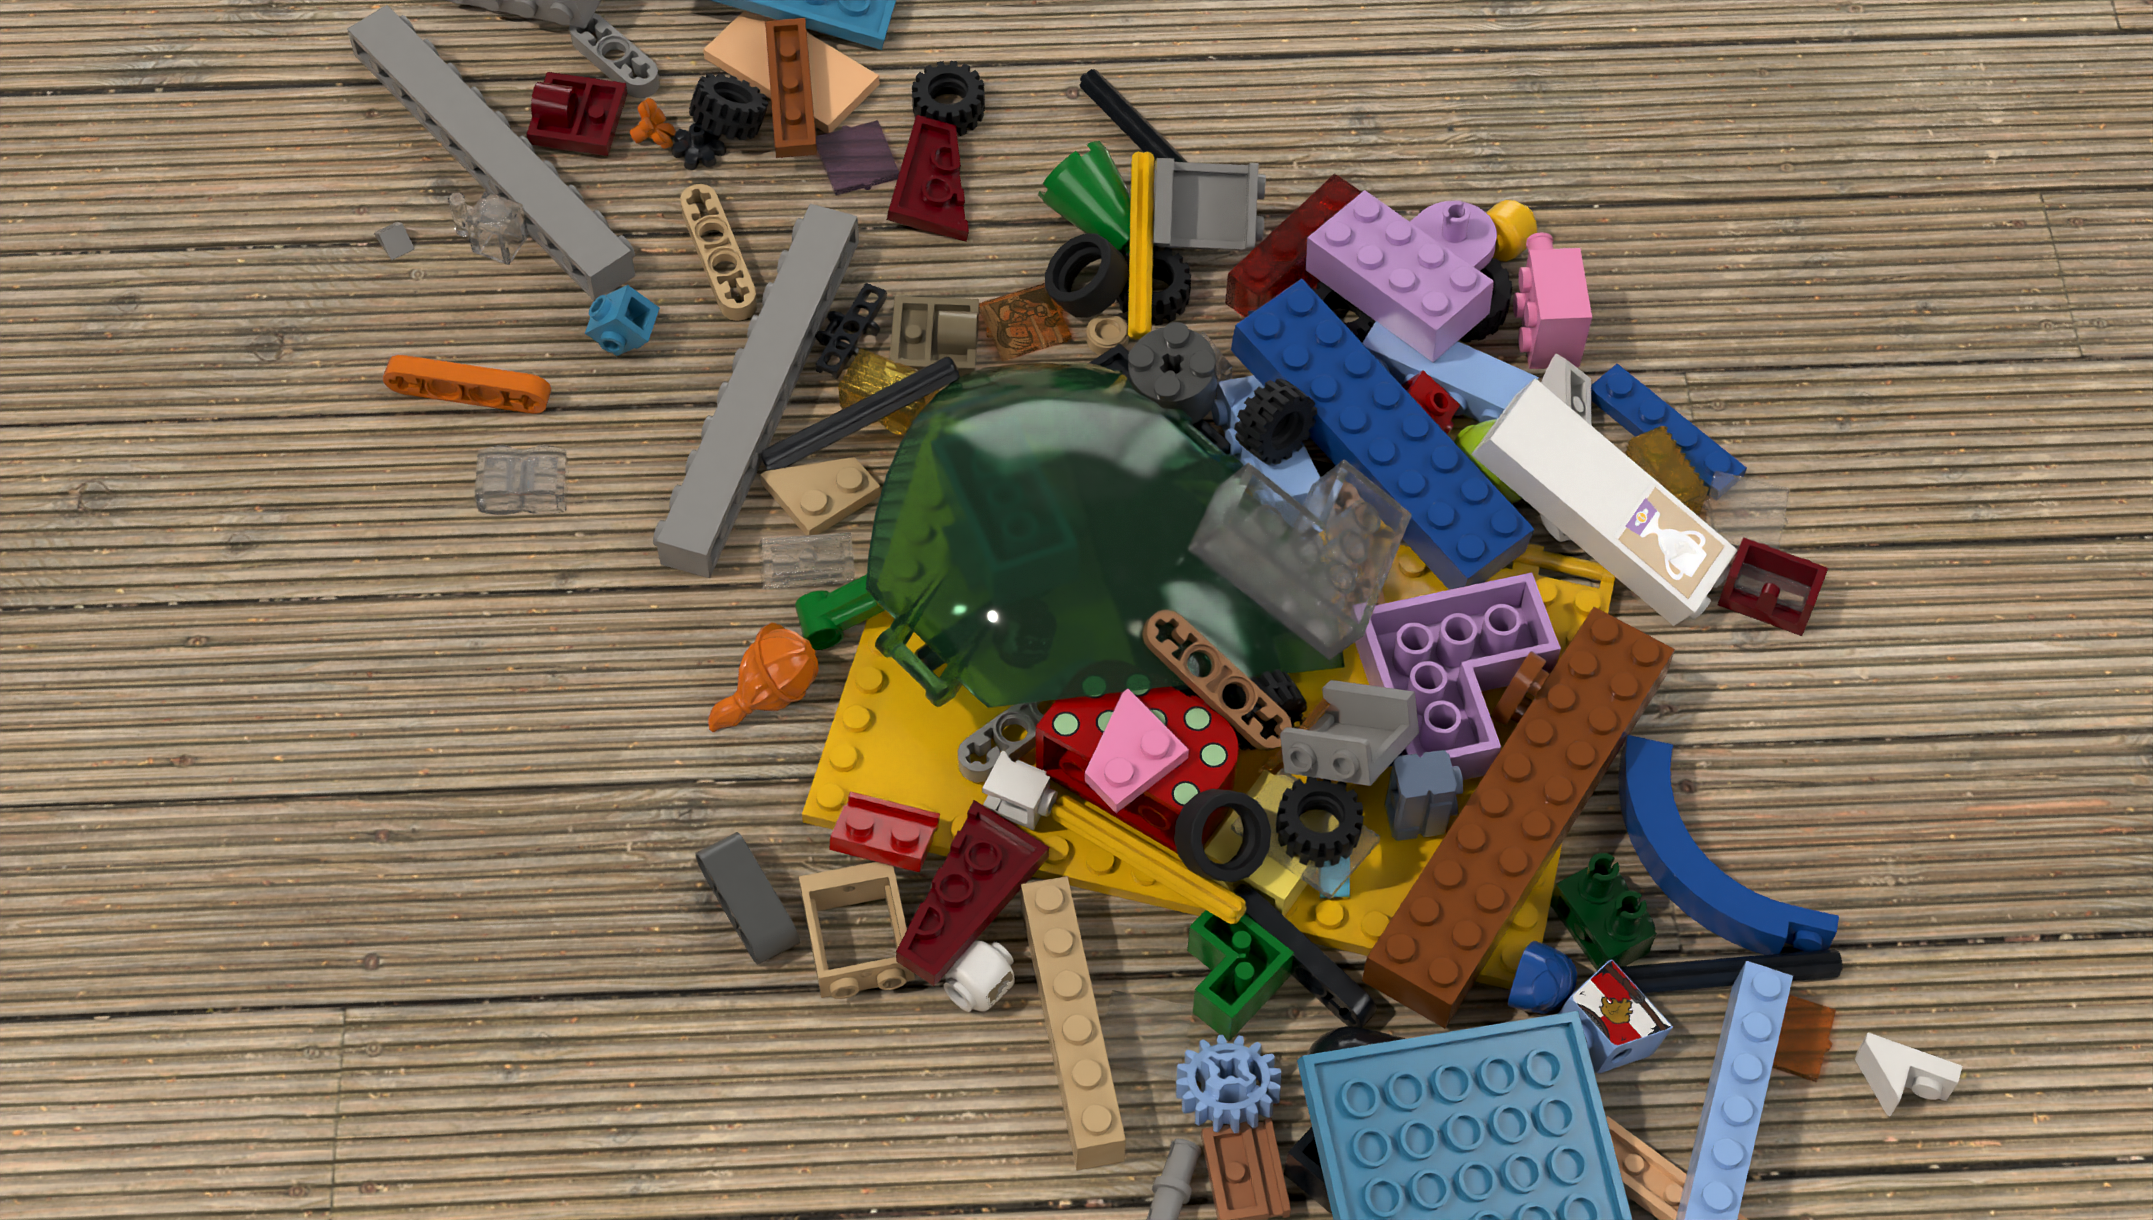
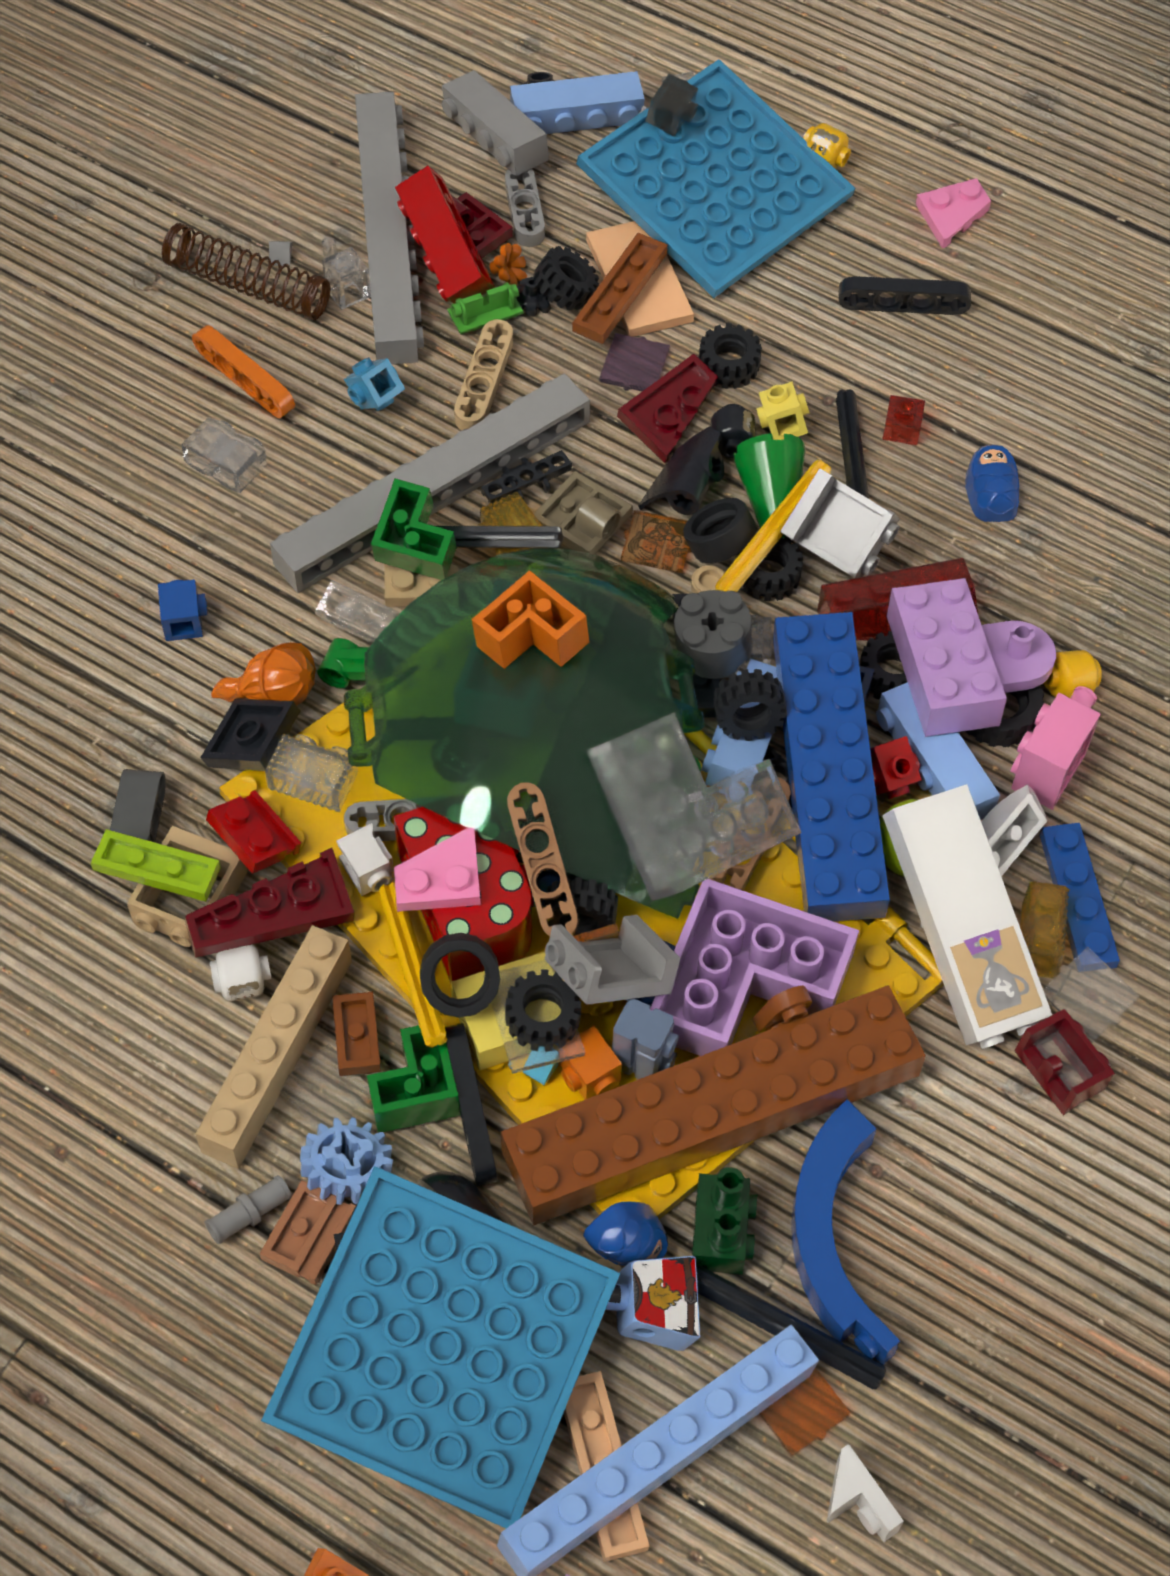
camera: 35 degrees right, 0 degrees up
(287, 297) = (186, 246): none -> reddish brown piece
(572, 129) = (443, 236): none -> red brick
(613, 662) = (181, 609): none -> blue brick
(665, 182) = (476, 310): none -> bright green hinge
(794, 742) = (250, 734): none -> black plate
(800, 456) = (405, 537): none -> green brick
(823, 922) = (155, 865): none -> lime plate
(894, 739) = (311, 772): none -> clear brick
(1006, 237) = (688, 473): none -> black panel
(1013, 172) = (735, 426): none -> black head
(1045, 447) = (530, 616): none -> orange brick
(1046, 119) = (783, 411): none -> light yellow brick
(1135, 962) = (356, 1033): none -> dark orange plate
(1163, 72) = (903, 420): none -> clear red plate
(1293, 89) = (993, 484): none -> blue piece
(1393, 853) = (596, 1070): none -> orange brick

